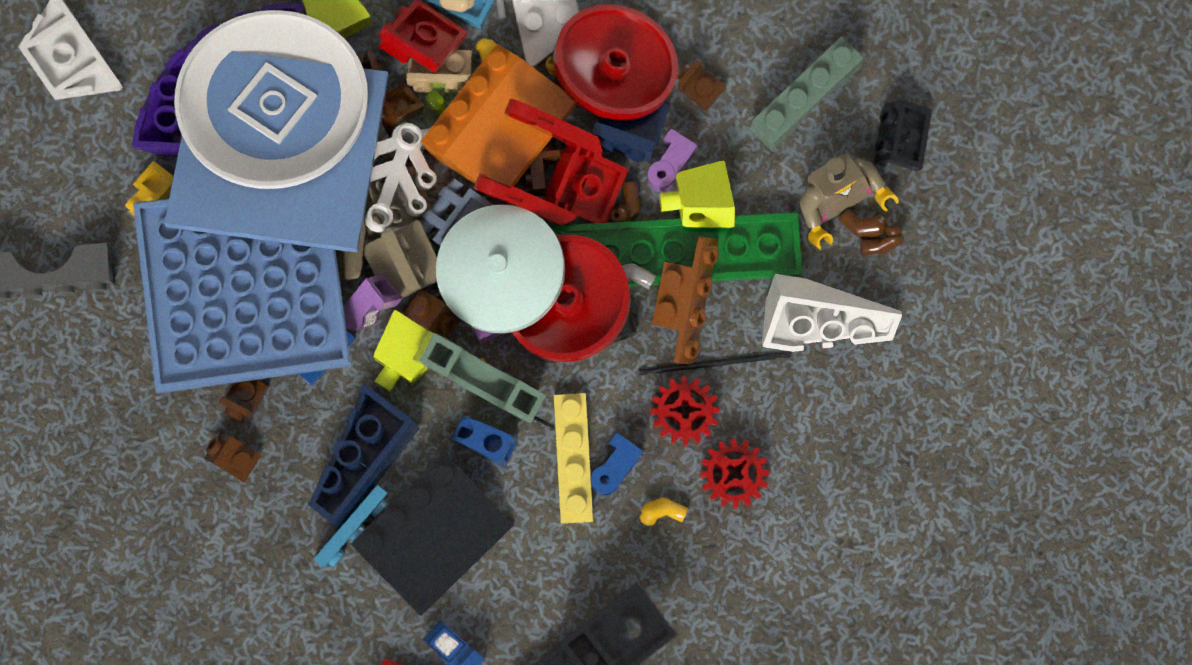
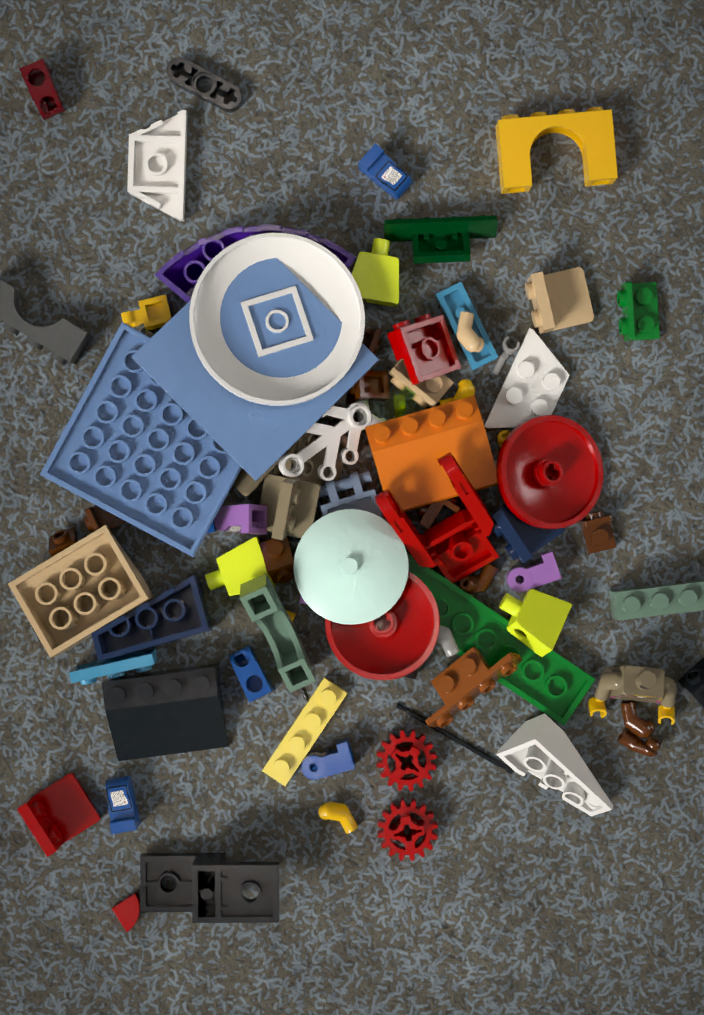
camera: 40 degrees right, 10 degrees up
(269, 478) = (80, 591): none -> tan slope

